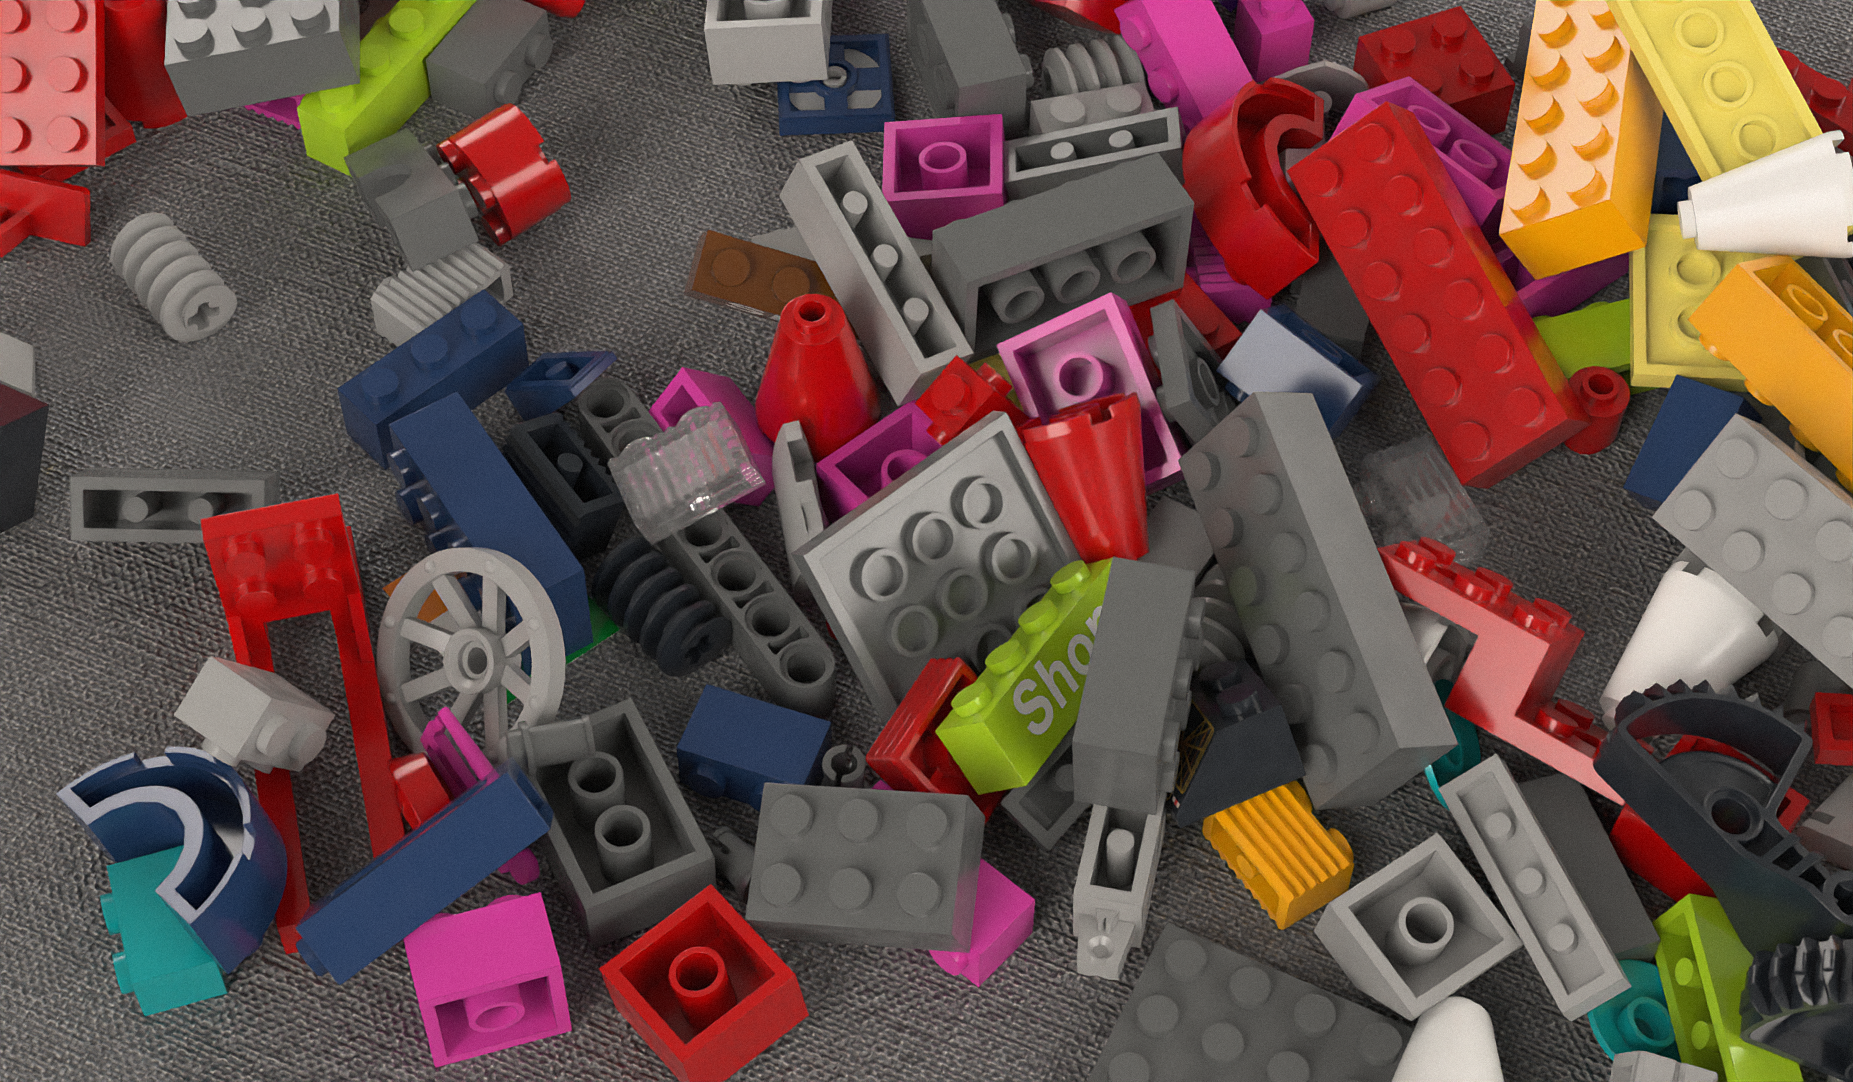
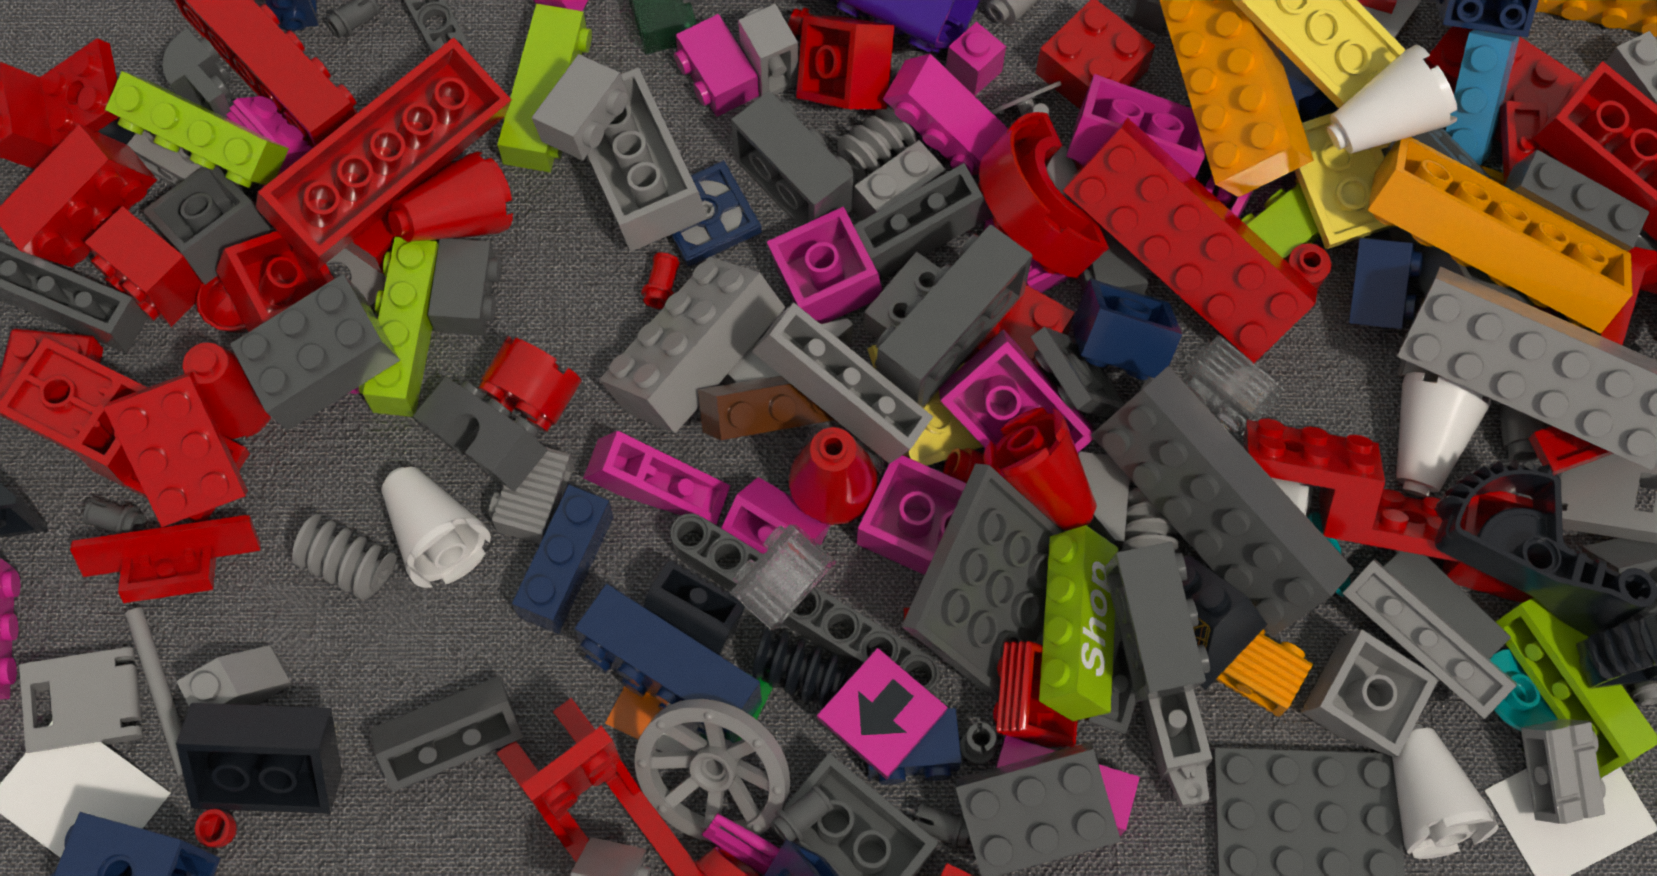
camera: 25 degrees left, 15 degrees up
(294, 290) = (432, 528): none -> white cone
(555, 380) = (653, 531): dark blue slope -> none
(581, 313) = (654, 478): none -> dark pink slope
(657, 220) = (692, 343): none -> light grey brick
(726, 143) = (660, 280): none -> red pin
(728, 685) = (882, 713): none -> dark pink tile
(796, 498) = (860, 565): light grey slope -> none
(964, 397) = (945, 453): red brick -> none

